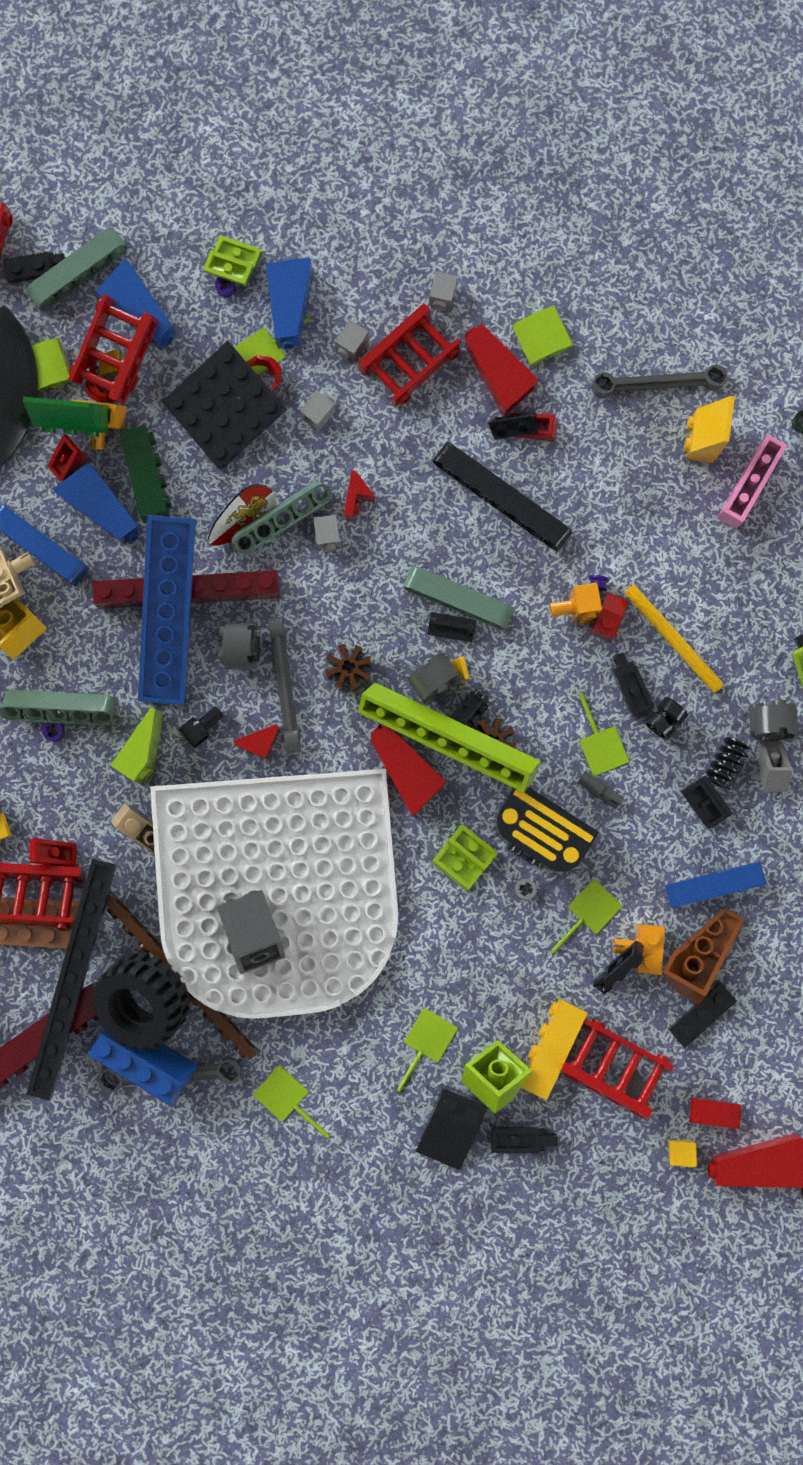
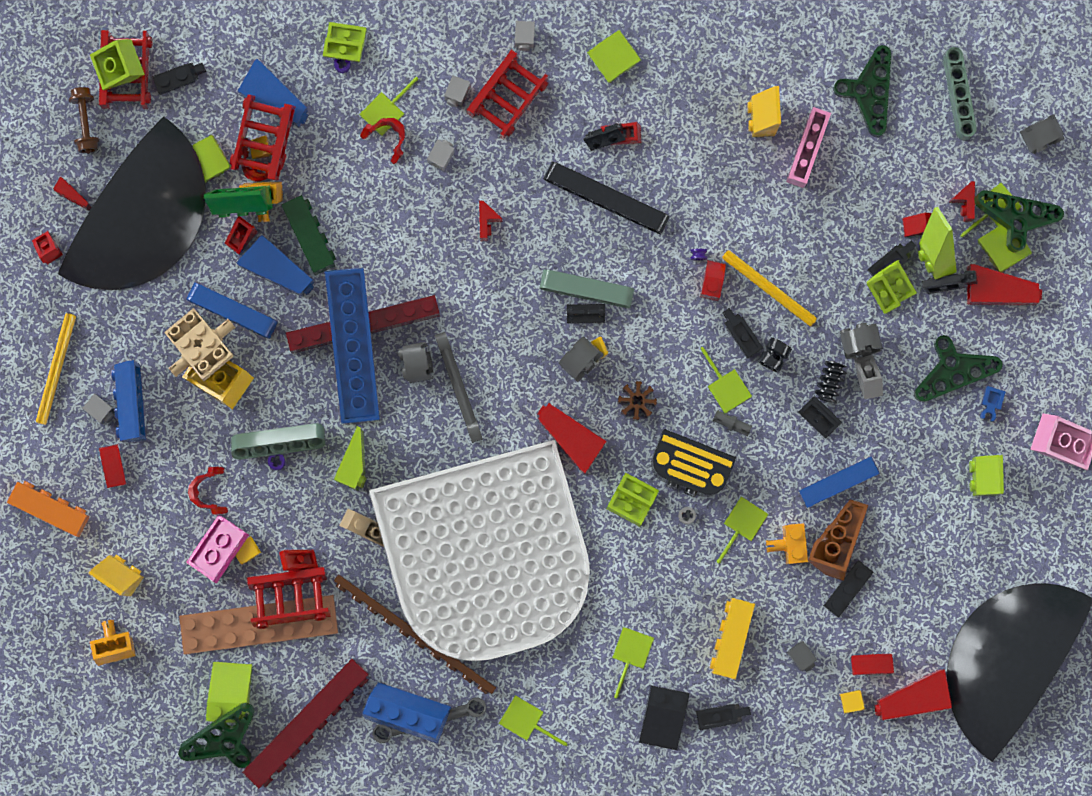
camera: 15 degrees left, 0 degrees up
(71, 980) = (336, 656): black plate -> none
(76, 269) = (215, 73): sand green beam -> none
(121, 1013) = (382, 677): black tyre -> none
(196, 730) = (393, 438): black axle -> none
(224, 405) = (362, 165): black plate -> none
(240, 511) = (397, 253): shield -> none
(251, 931) = (474, 590): dark grey slope -> none
(259, 742) = (448, 438): red slope -> none
(289, 295) = (398, 65): blue slope -> none
(293, 516) = (419, 251): sand green beam -> none
(327, 533) = (468, 255): light grey brick -> none
(353, 662) = (510, 357): reddish brown gear -> none
(449, 737) = (601, 404): lime brick -> none
(475, 706) = (611, 388): black hinge -> none
(495, 1076) = (691, 668): lime slope -> none
(500, 370) = (584, 92): red slope -> none
(583, 604) = (689, 275): light orange brick -> none
(618, 1093) = (790, 662): red fence -> none
(619, 967) = (774, 562): black hinge -> none
(659, 381) = (717, 77): dark grey piece -> none

